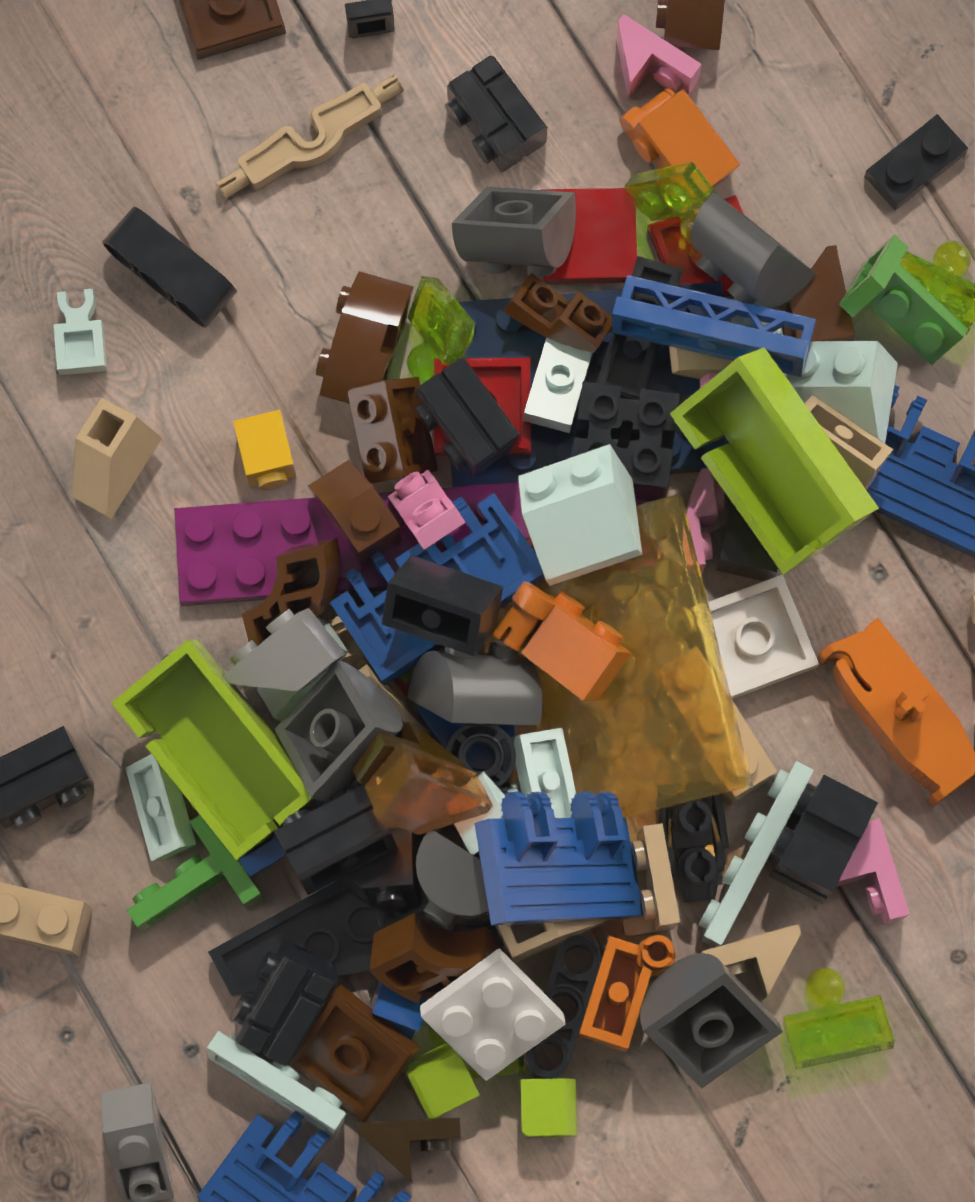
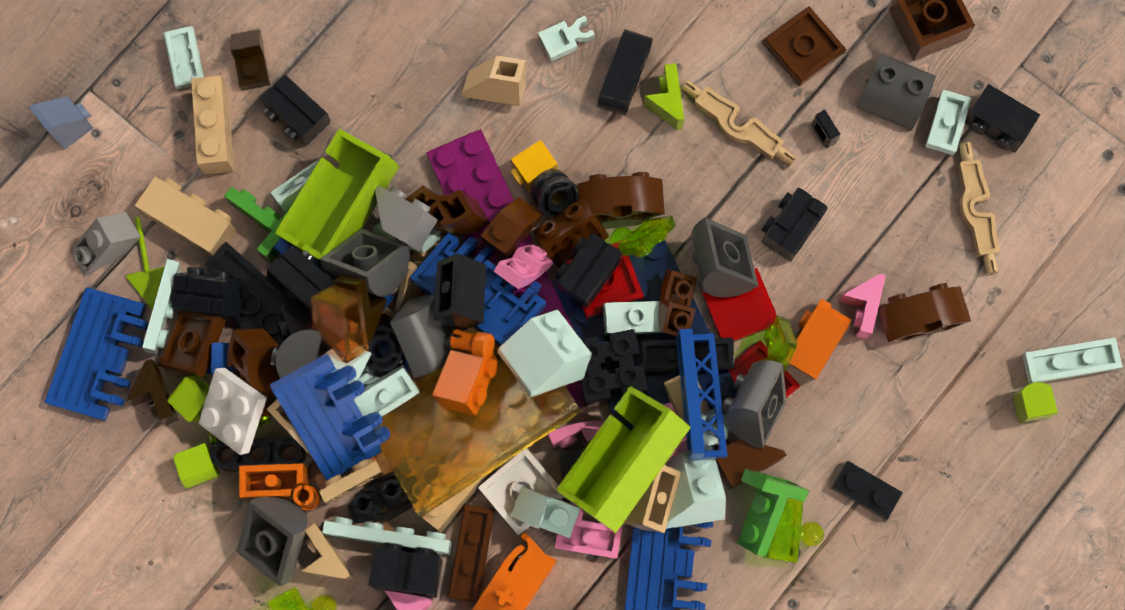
camera: 70 degrees right, 0 degrees up
(142, 1002) = (185, 215): none -> tan brick
(222, 1097) = (149, 280): none -> lime piece
(247, 219) = (668, 103): none -> lime slope
(321, 432) = (546, 185): none -> black wheel
(801, 610) = (545, 512): none -> light aqua slope
(818, 743) = (471, 553): none -> reddish brown tile
(851, 570) = (591, 539): none -> bright pink plate

